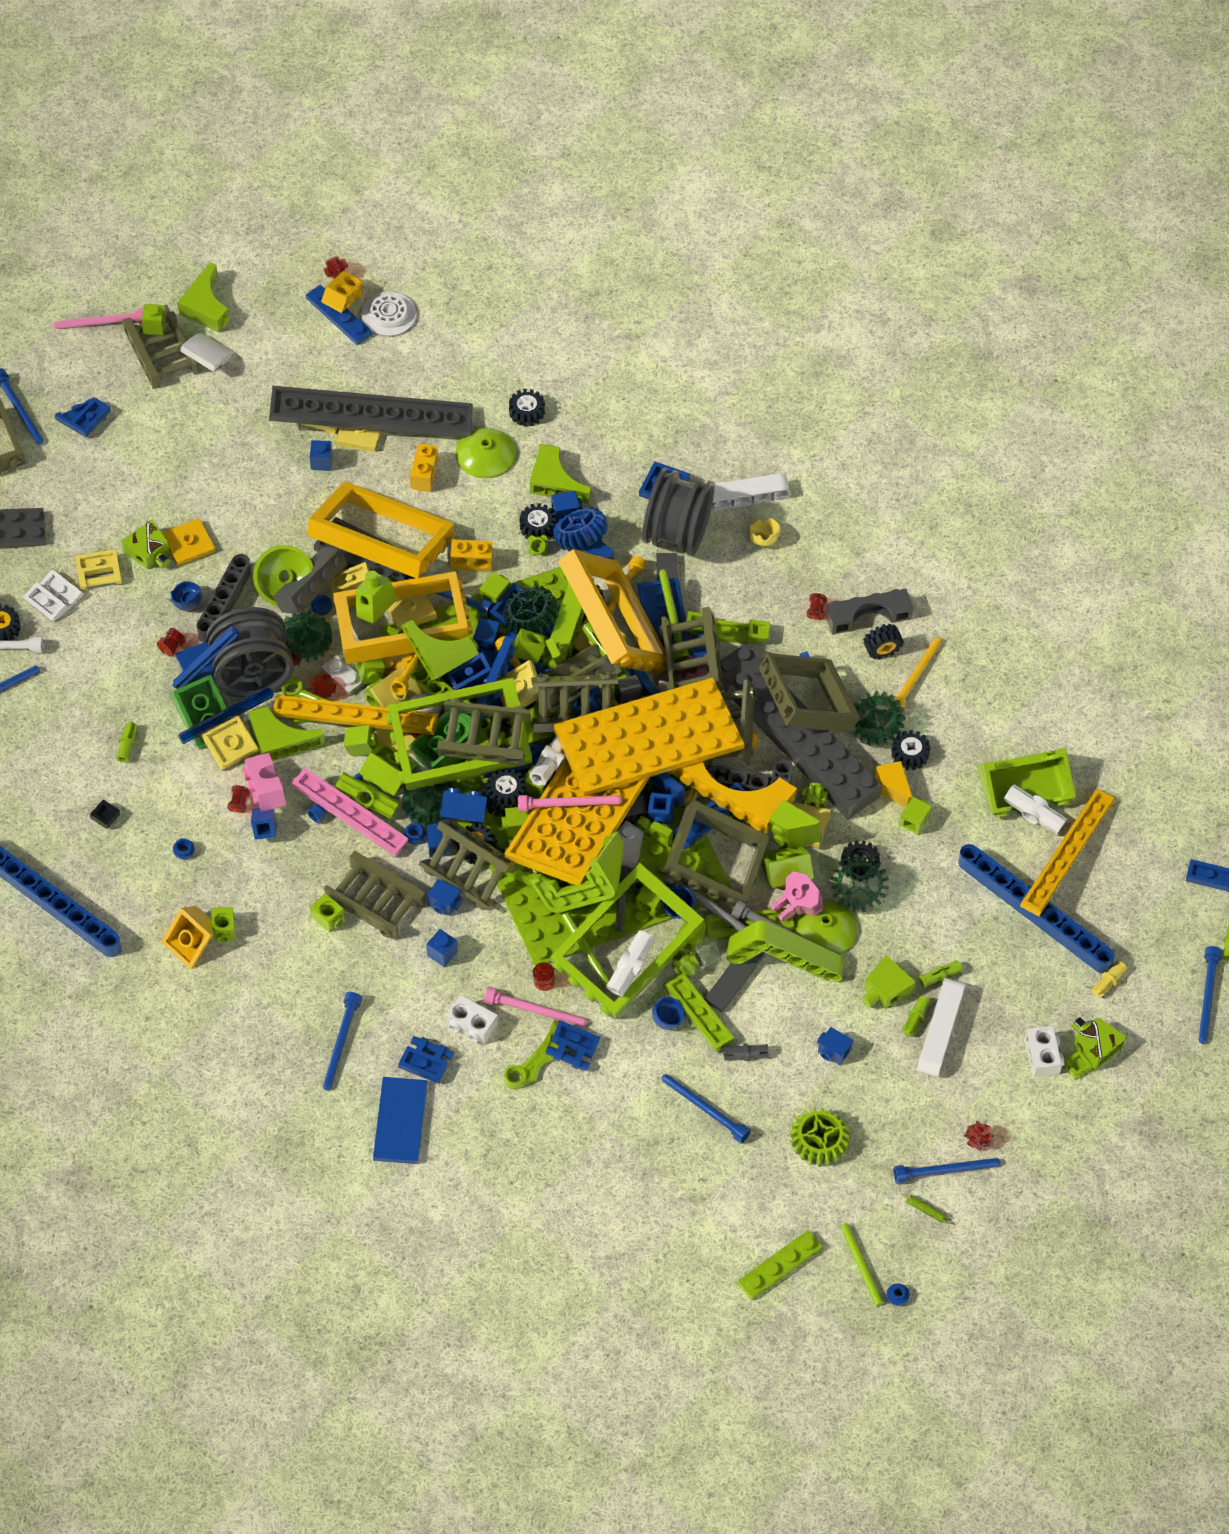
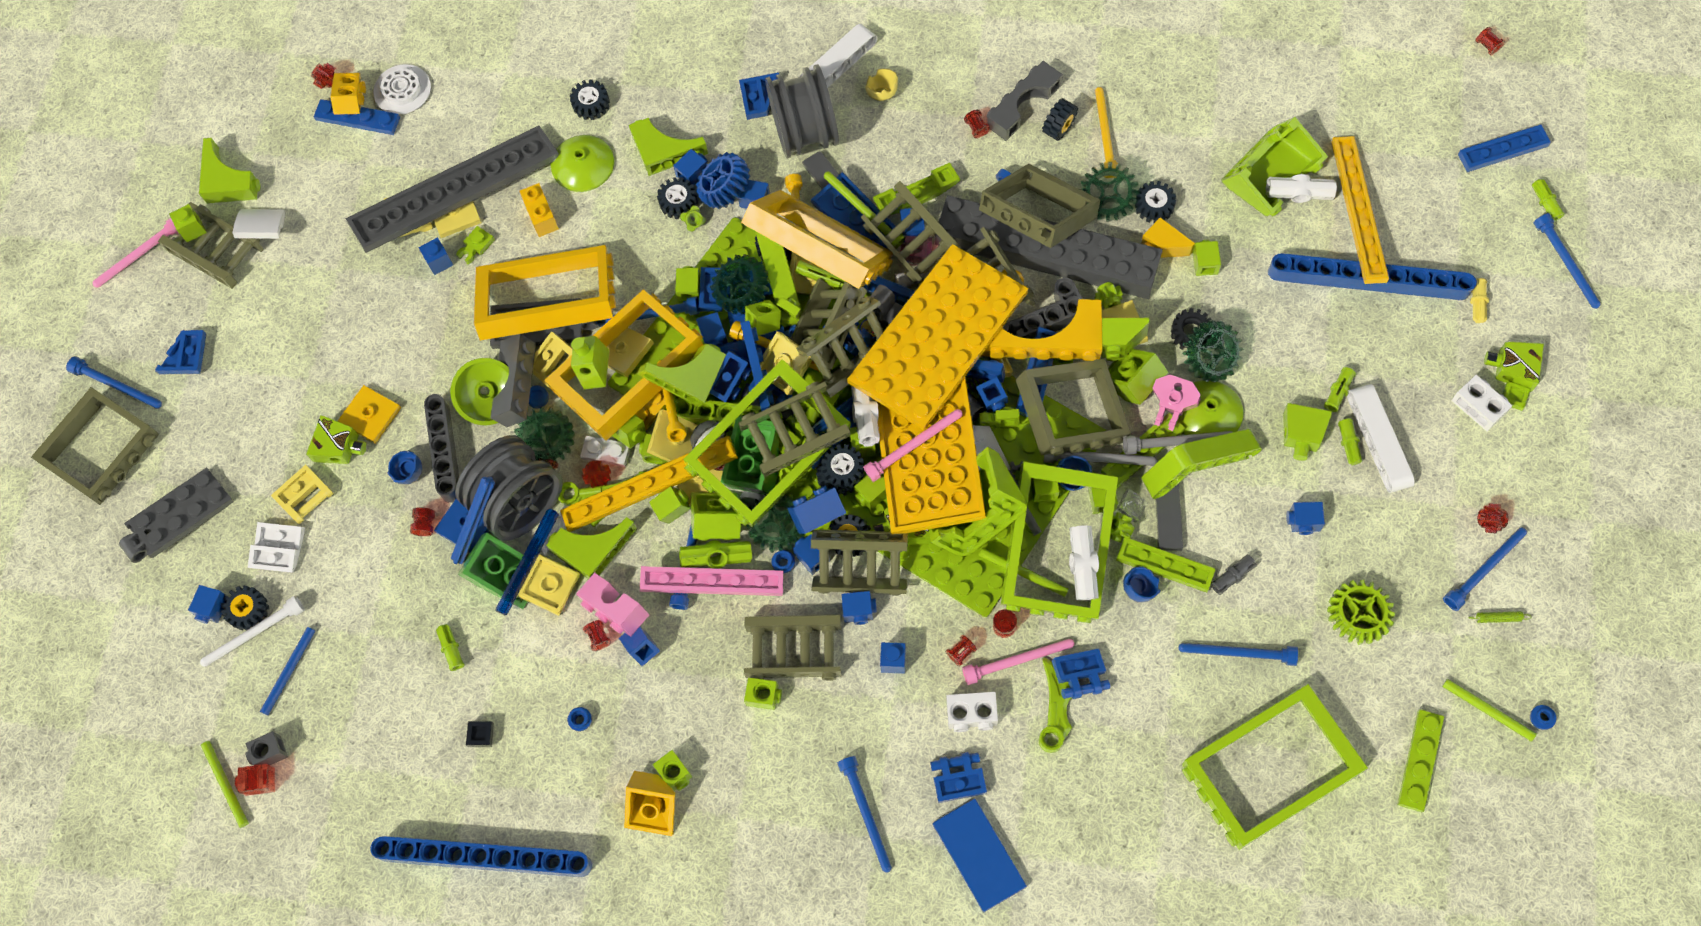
camera: 25 degrees left, 10 degrees up
(360, 464) = (476, 242): none -> lime plate
(471, 555) = (642, 264): yellow brick -> none
(497, 975) = (953, 652): none -> clear red bush
(659, 1233) = (1222, 814): none -> lime window

